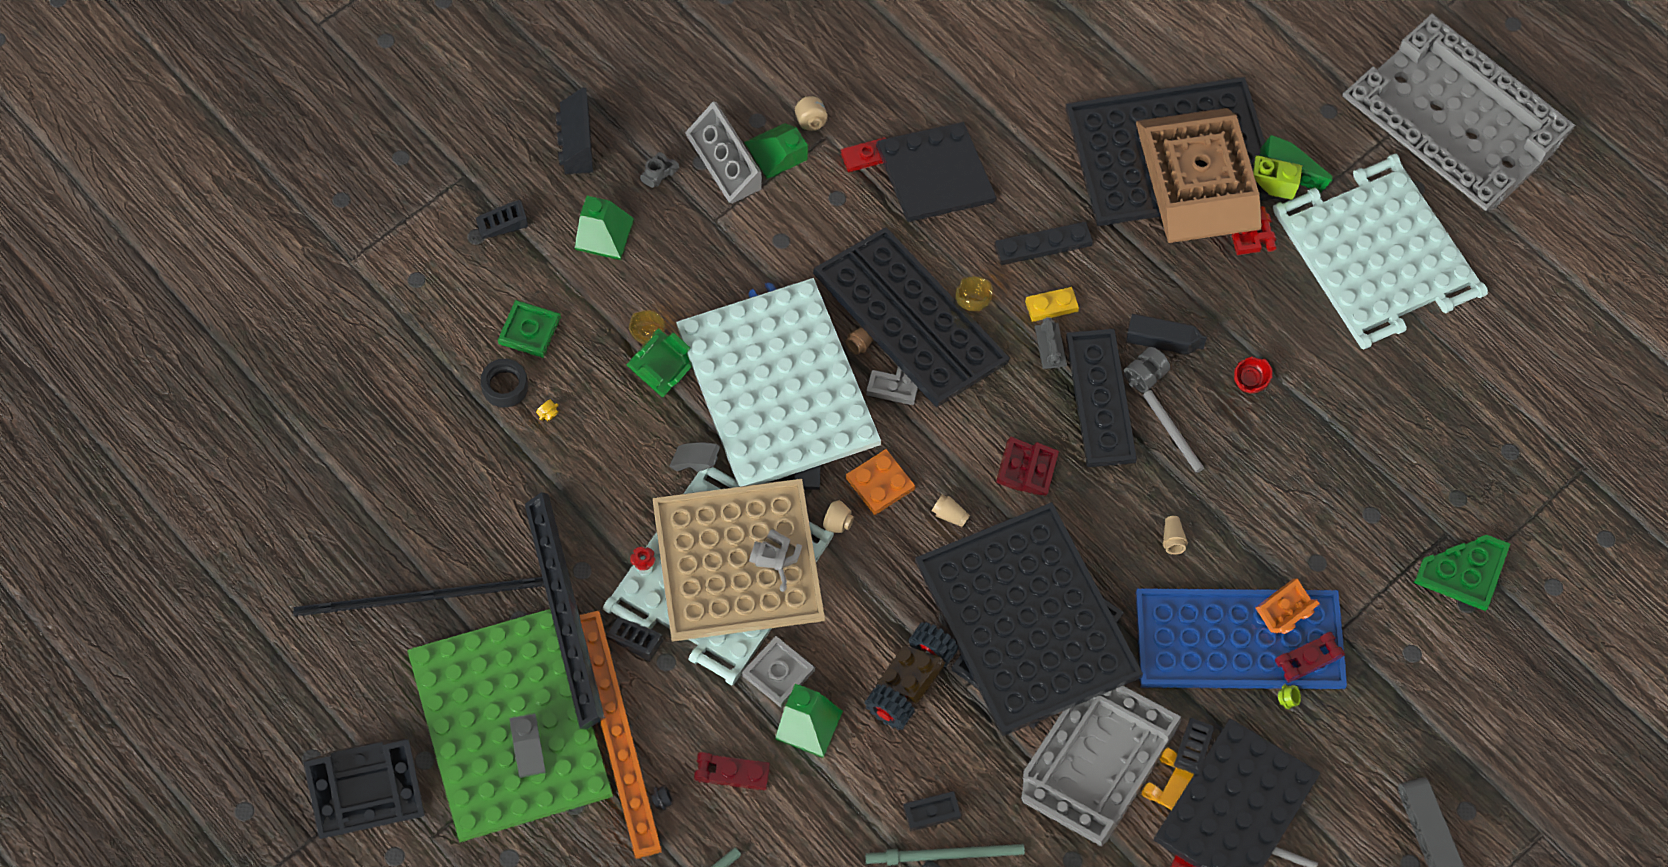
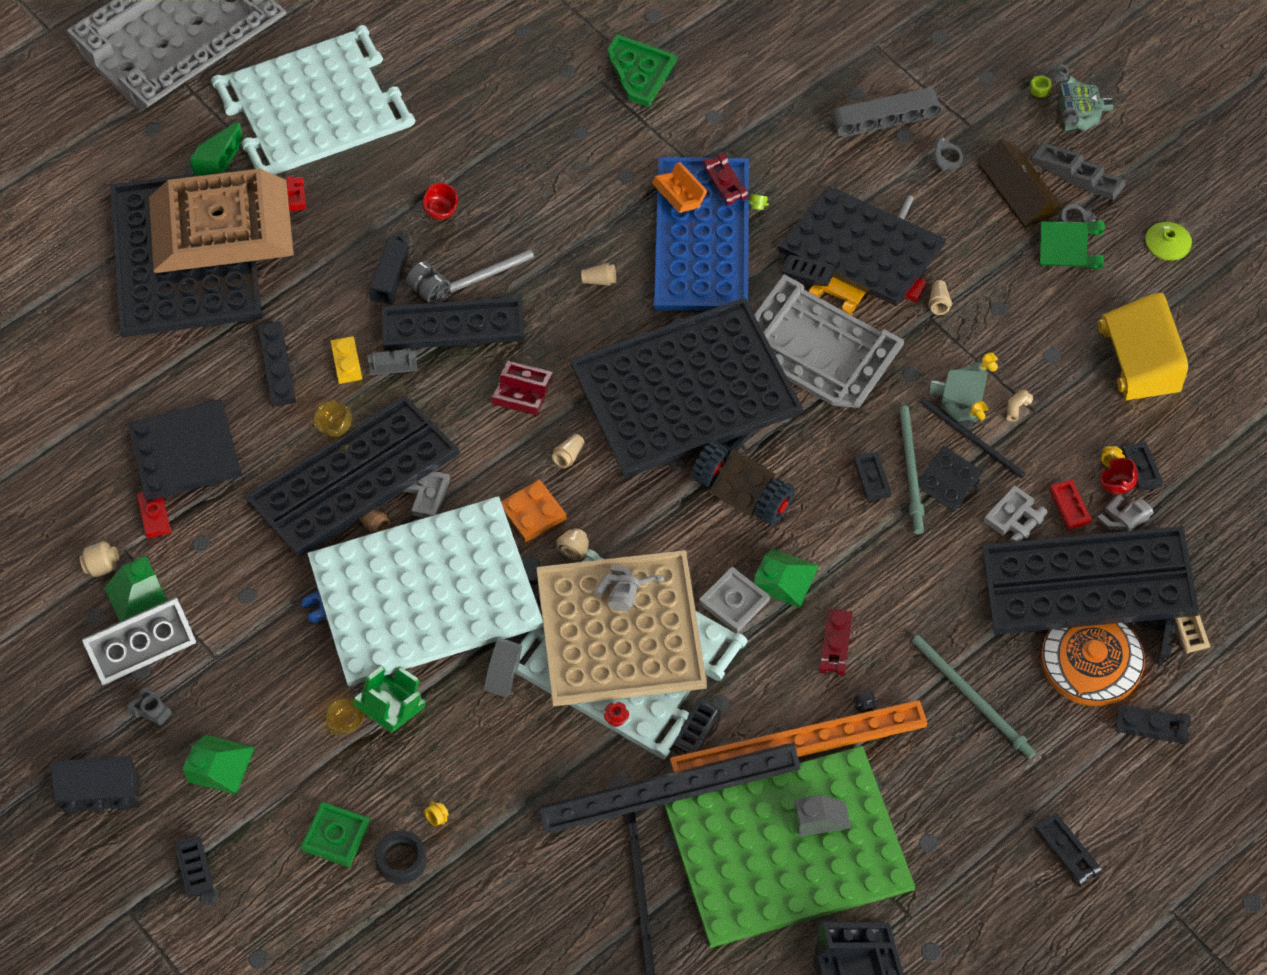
camera: 85 degrees left, 5 degrees down
(1277, 176) = (236, 156): lime slope -> none

